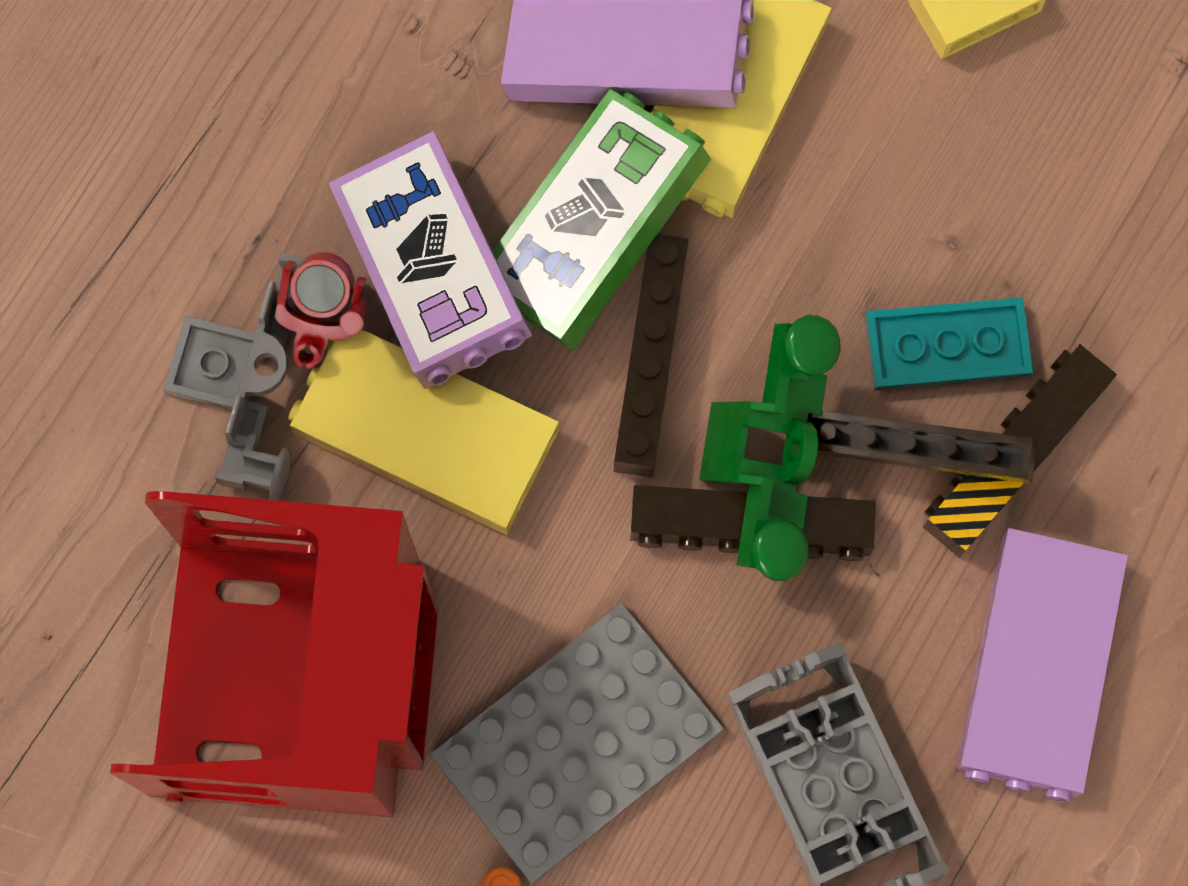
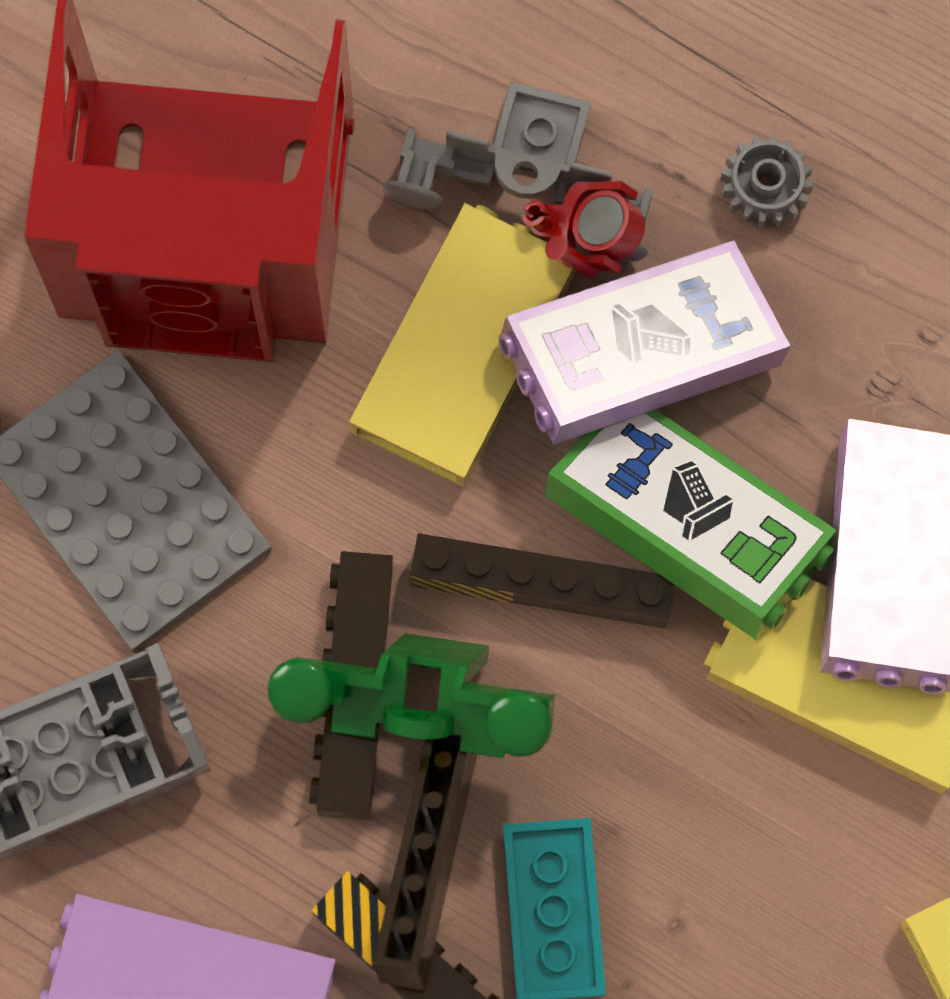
camera: 90 degrees right, 0 degrees up
(268, 177) = (763, 201): none -> light grey gear

